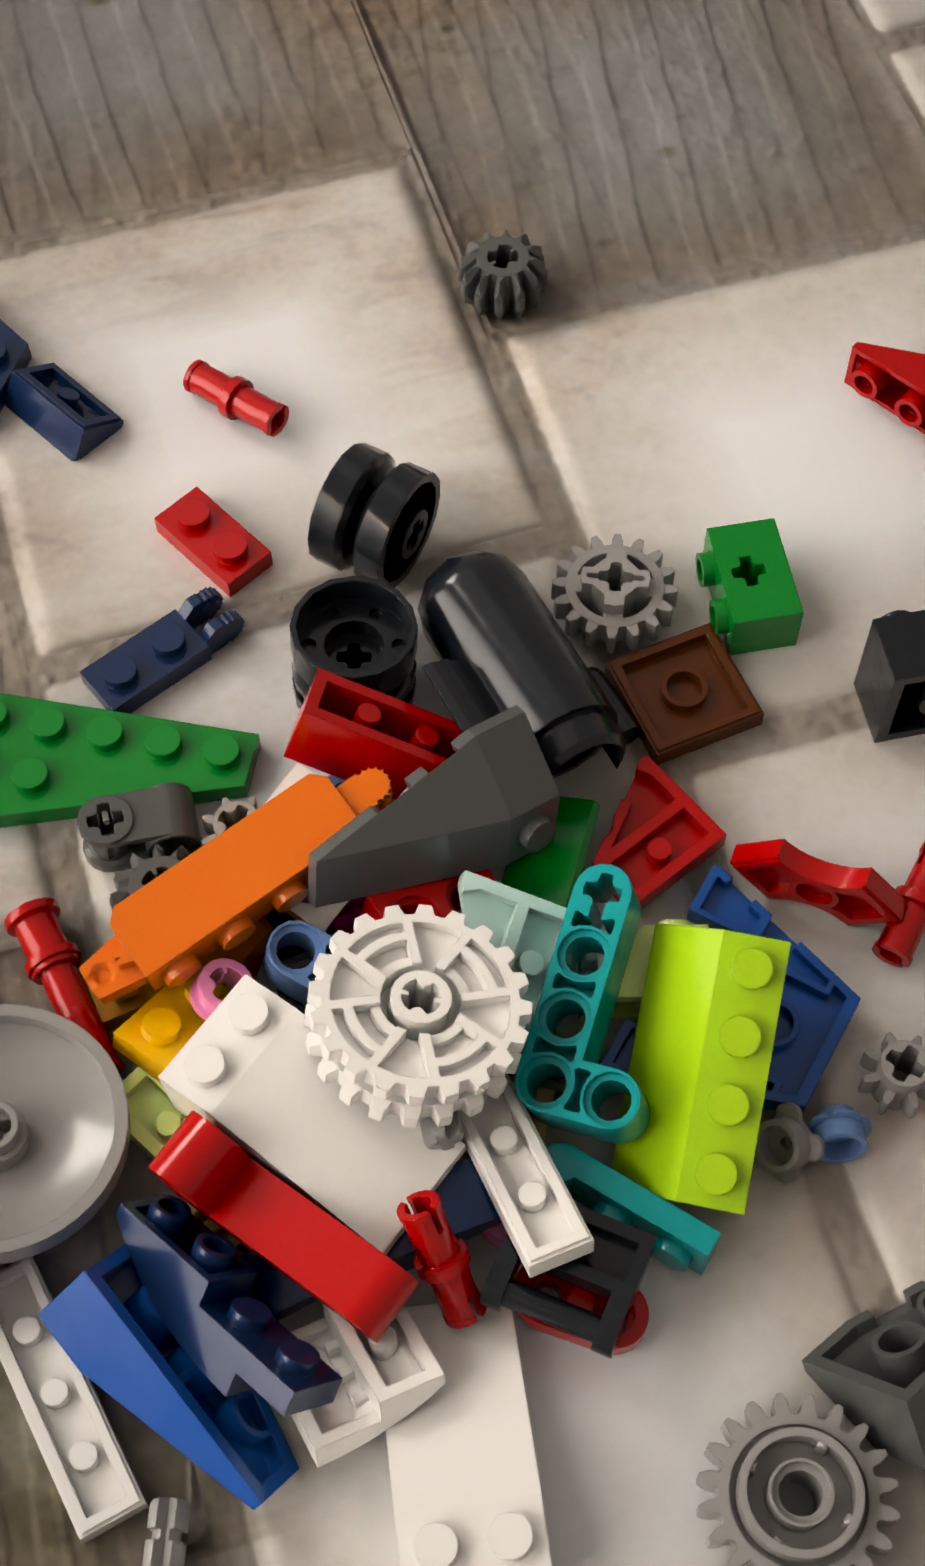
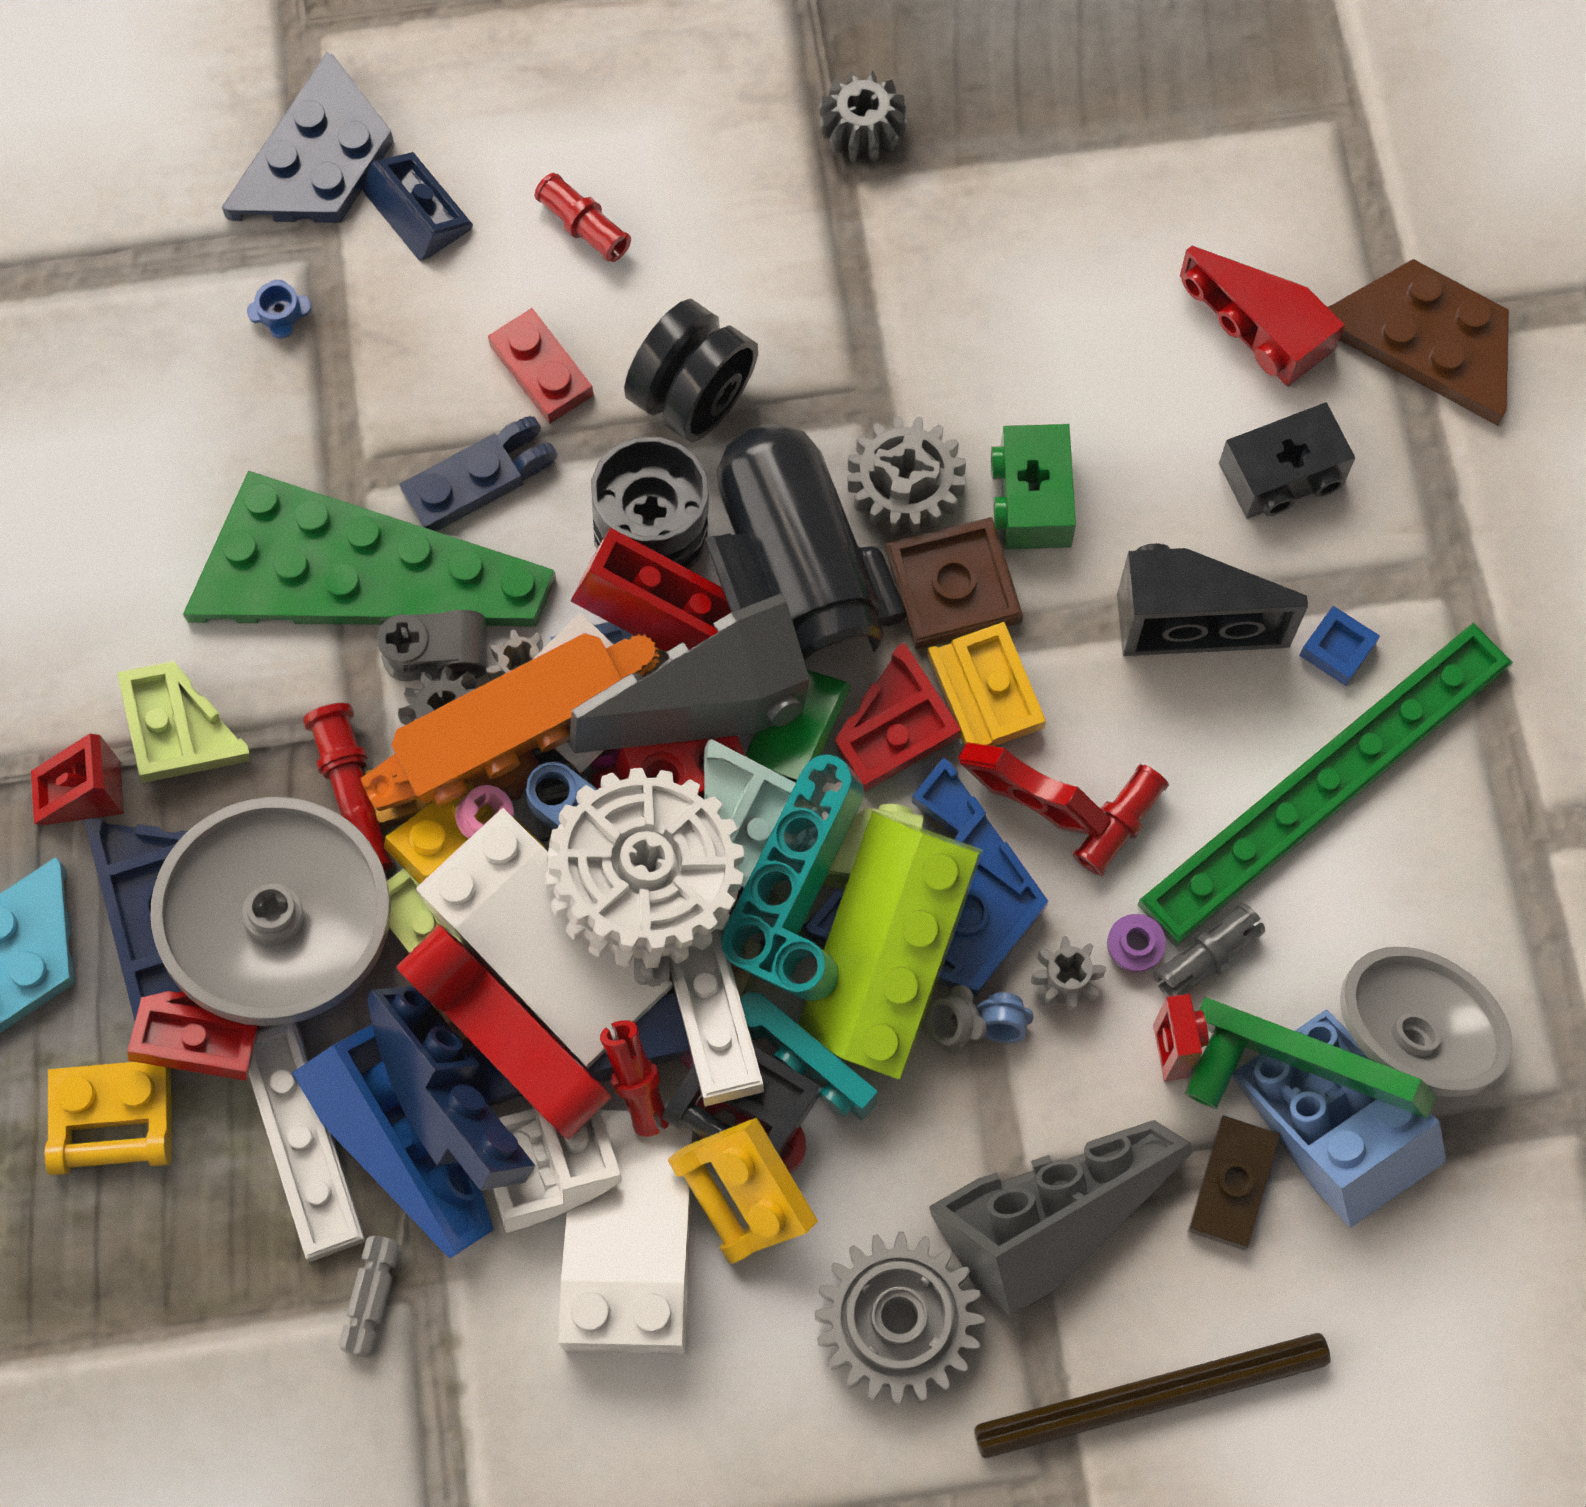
camera: 10 degrees right, 10 degrees up
(605, 1361) = (756, 1184): none -> yellow plate
(742, 787) = (987, 687): none -> yellow plate

